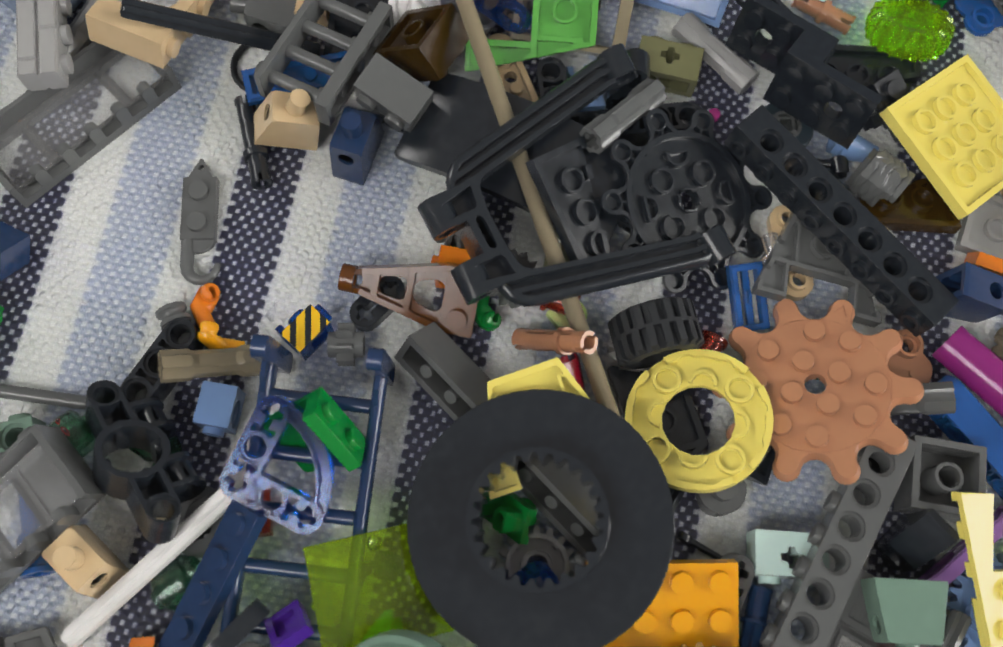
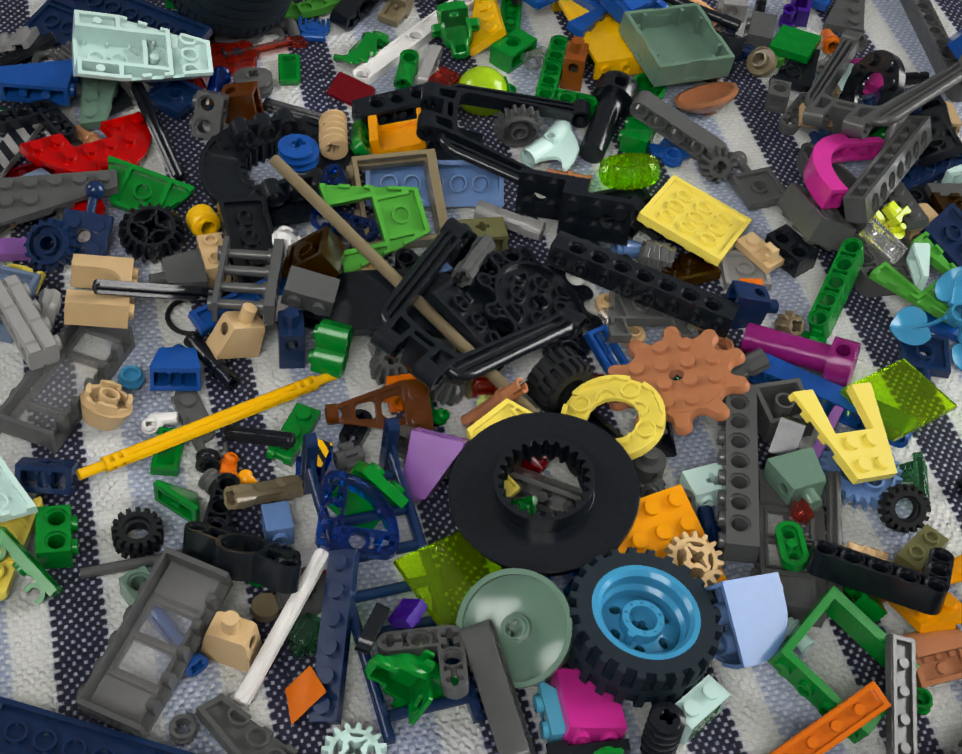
camera: 25 degrees left, 25 degrees down
(41, 348) = (137, 520): none -> black tyre
(94, 166) = (105, 405): none -> tan cone
(129, 329) = (178, 499): none -> green slope
(148, 252) = (167, 461): none -> green tile
(151, 133) = (131, 378): none -> dark azure plate
(154, 204) = (155, 420): none -> white arm
(182, 285) = (206, 459): none -> black bush
(200, 141) = (175, 369): none -> blue torso
(200, 236) = (204, 425): none -> yellow axle
(254, 276) = (260, 436): none -> black axle
(302, 281) = (300, 422): none -> green plate
(393, 178) = (331, 347): none -> green brick
(430, 396) = (430, 460): none -> medium lavender slope
(701, 541) = (655, 485): none -> dark grey pin

